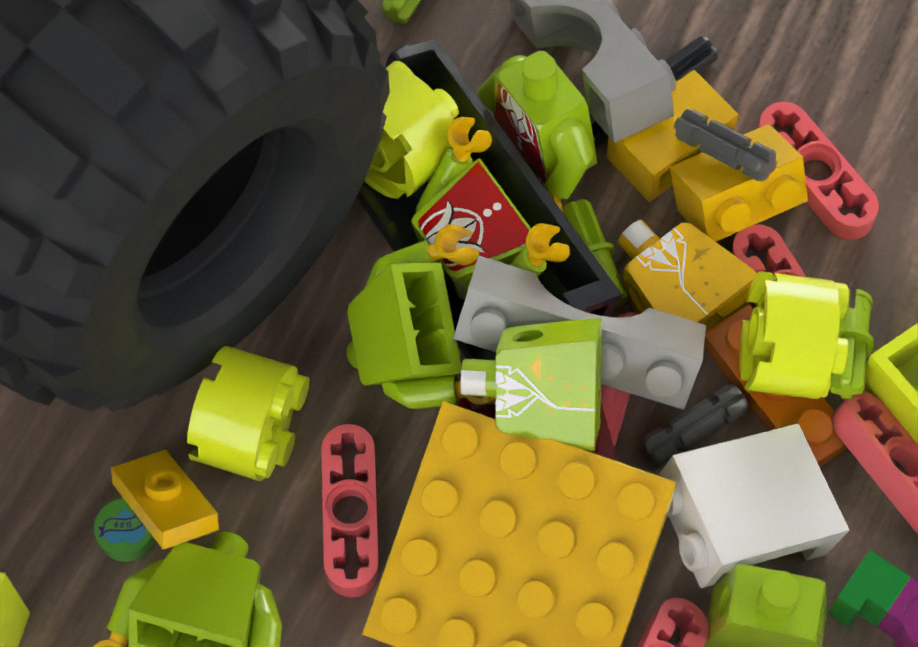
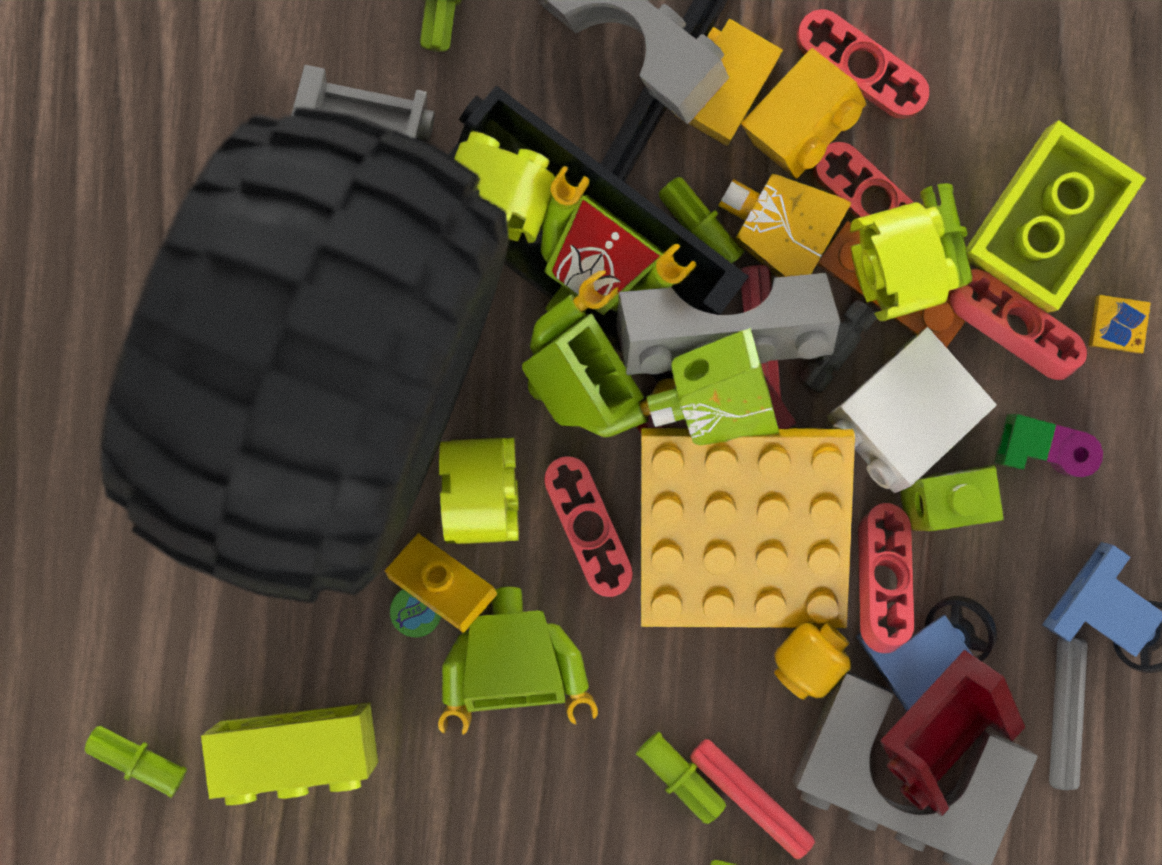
camera: 20 degrees left, 25 degrees up
(543, 119) = (617, 125): lime torso -> none
(725, 144) = (786, 96): dark grey axle -> none

